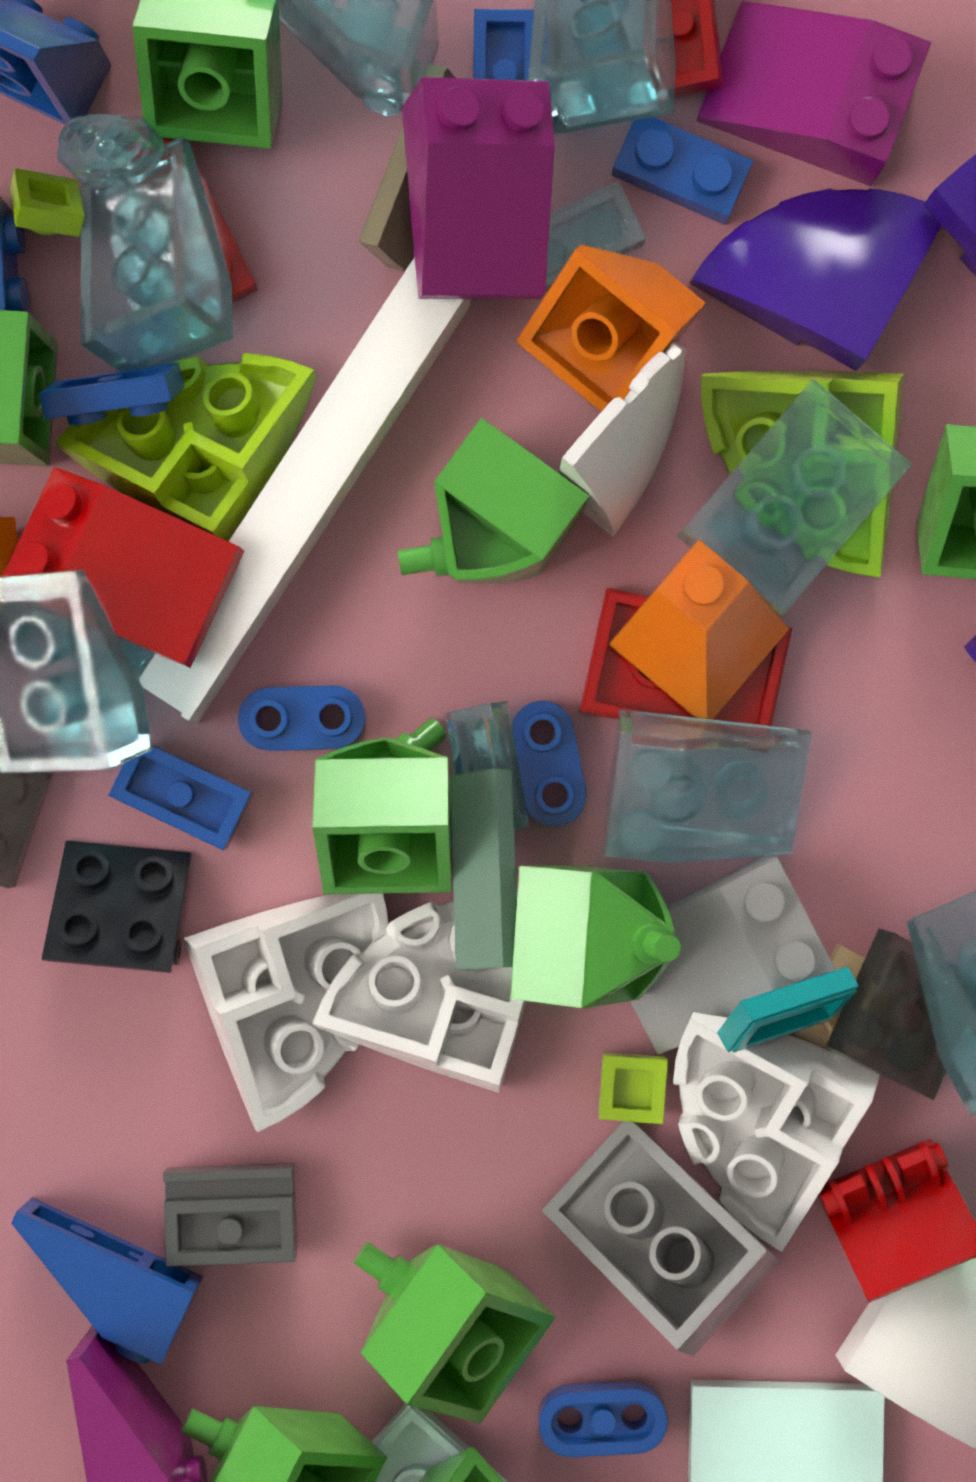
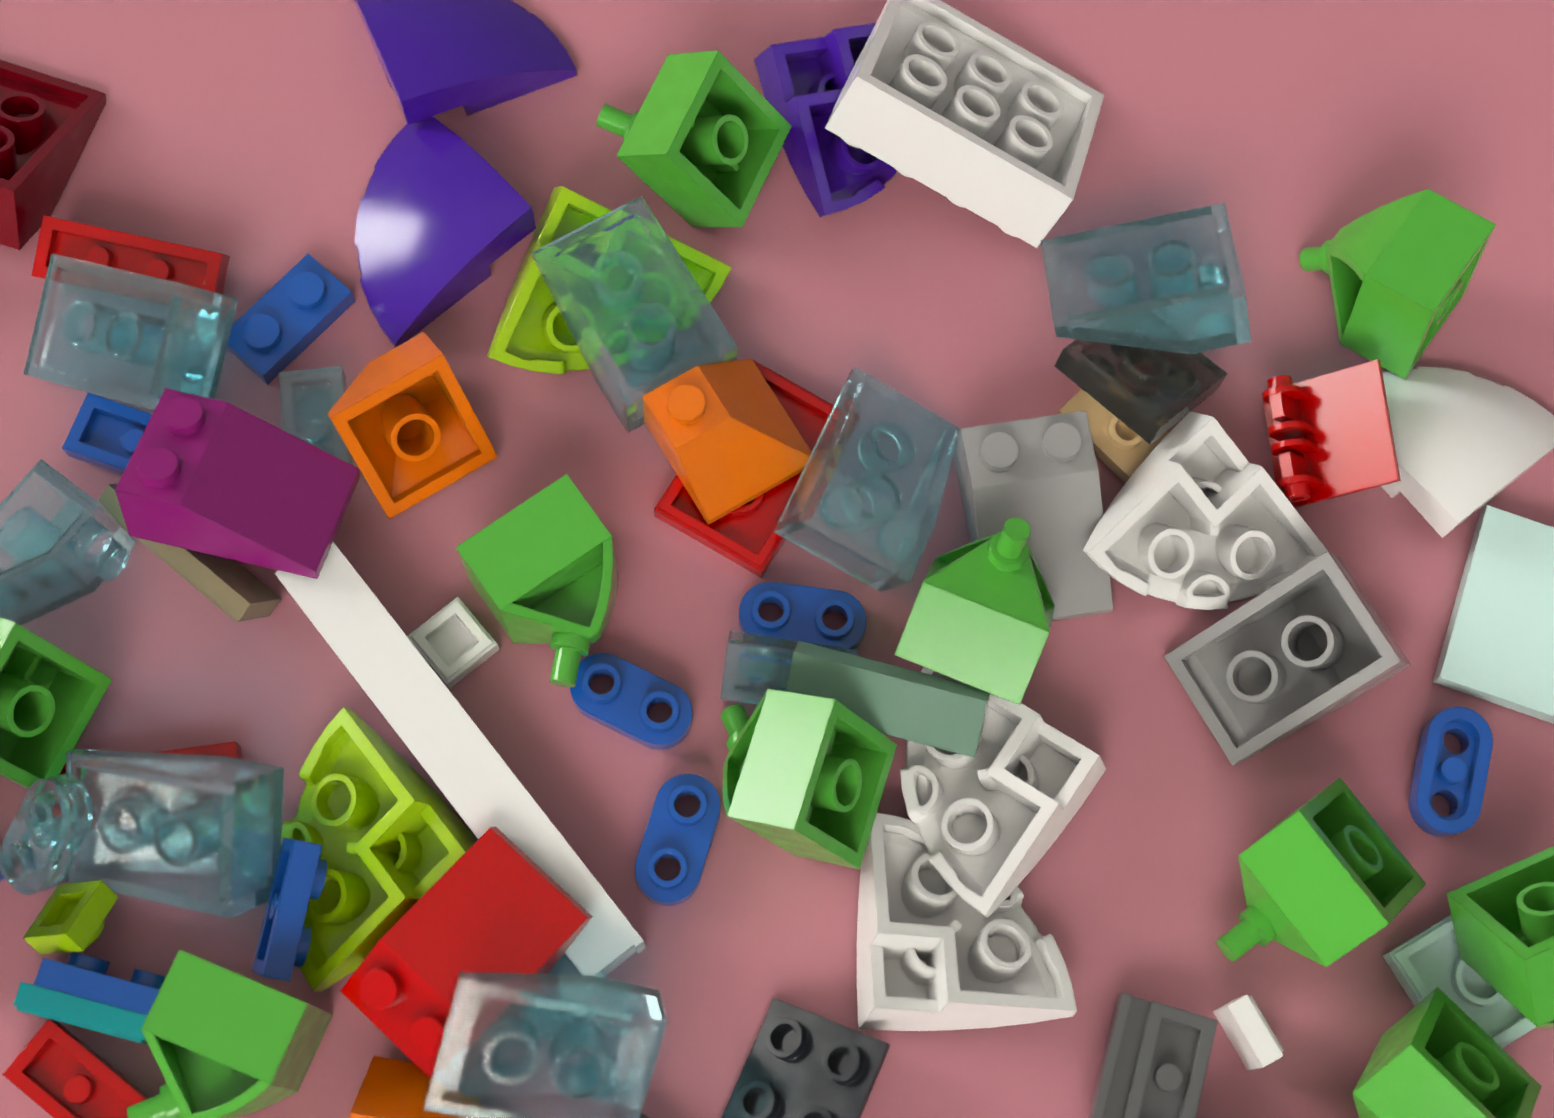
camera: 80 degrees left, 15 degrees down
(182, 796) = (715, 981): blue plate -> none
(293, 1293) = (1249, 1032): none -> white tile
(416, 446) = (453, 642): none -> white tile
(416, 630) = (628, 702): none -> blue plate
(627, 441) = (524, 437): white brick -> none
(632, 1087) = (1137, 639): lime plate -> none
(787, 1010) = (1106, 461): teal tile -> none
(816, 86) = (265, 177): magenta slope -> none

